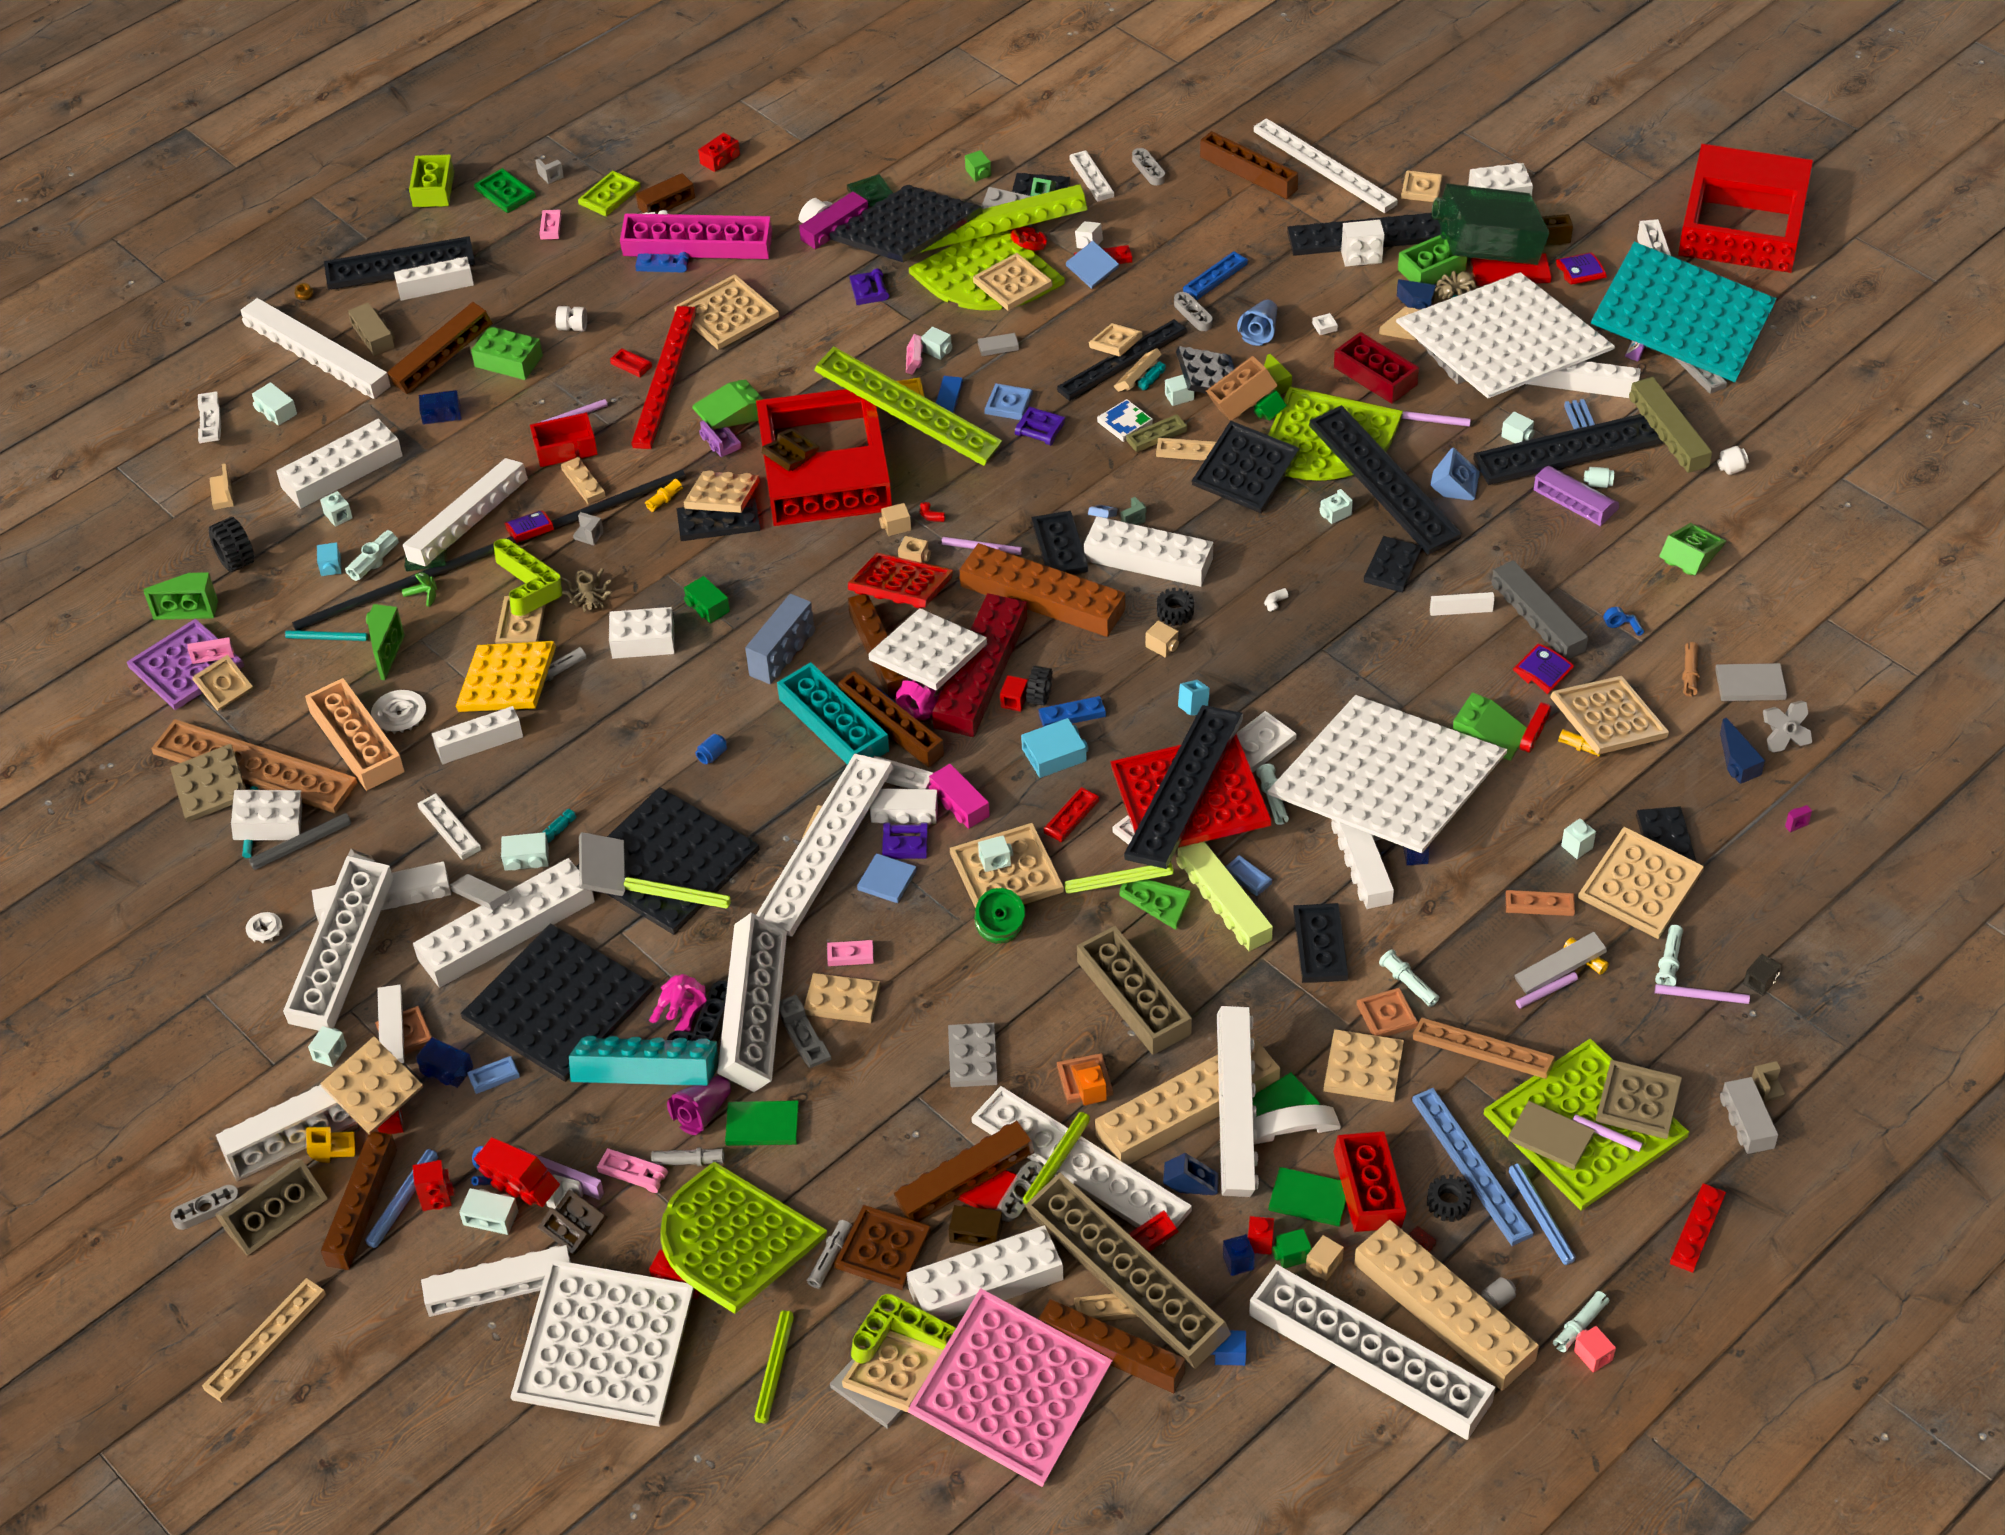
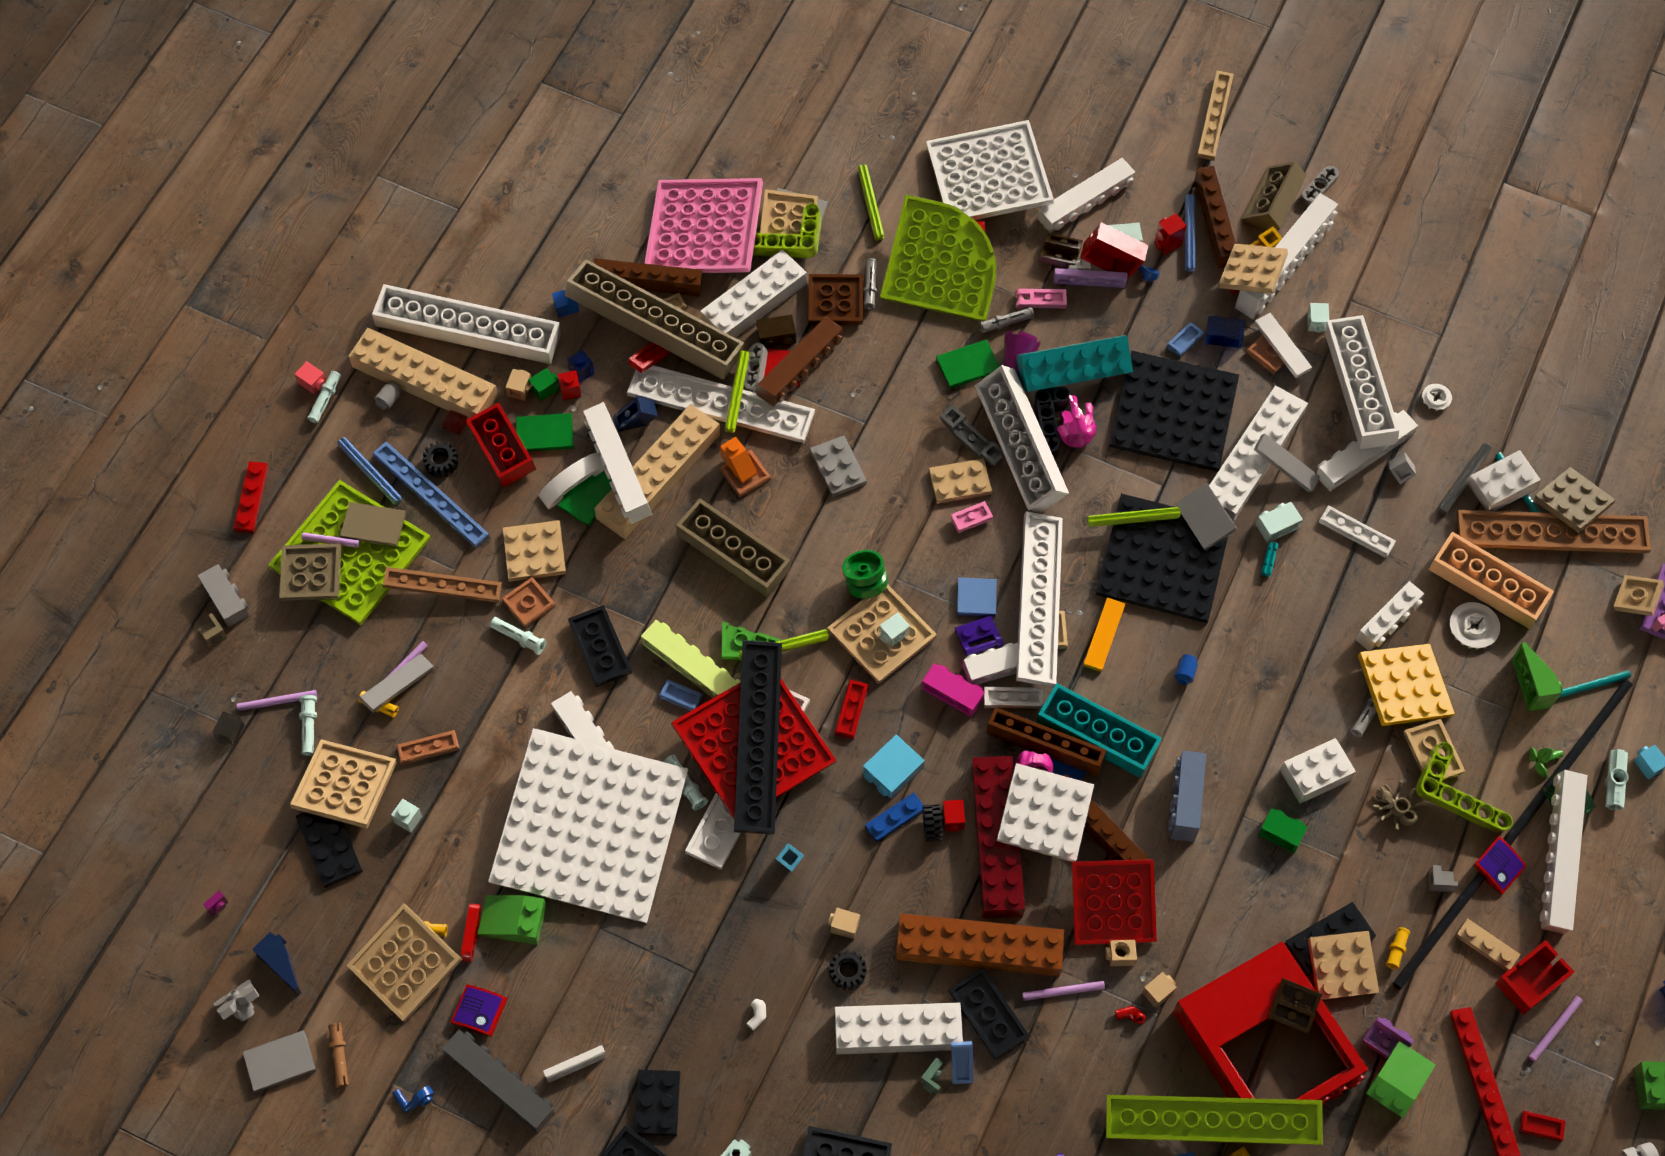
camera: 155 degrees right, 15 degrees up
(773, 807) = (1104, 635): none -> light orange tile

